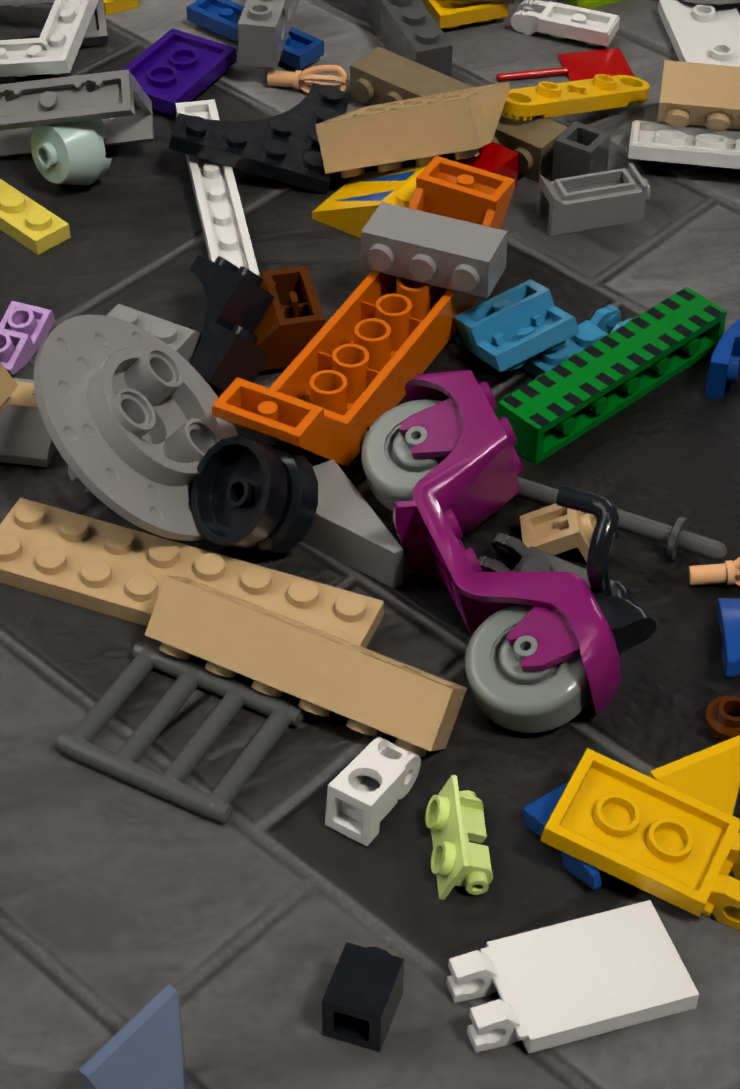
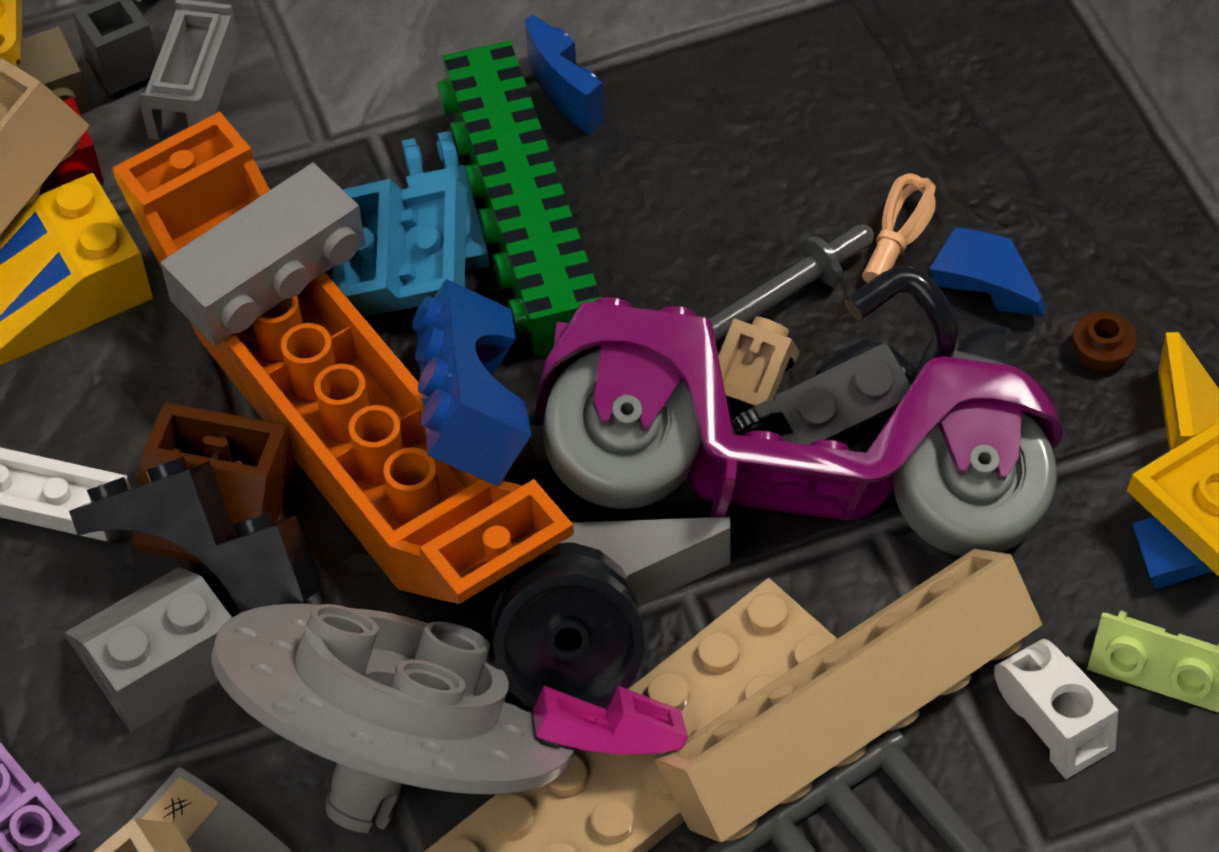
camera: 60 degrees left, 10 degrees up
(189, 535) = (628, 725): none -> dark pink slope
(371, 378) = (466, 411): none -> blue arch

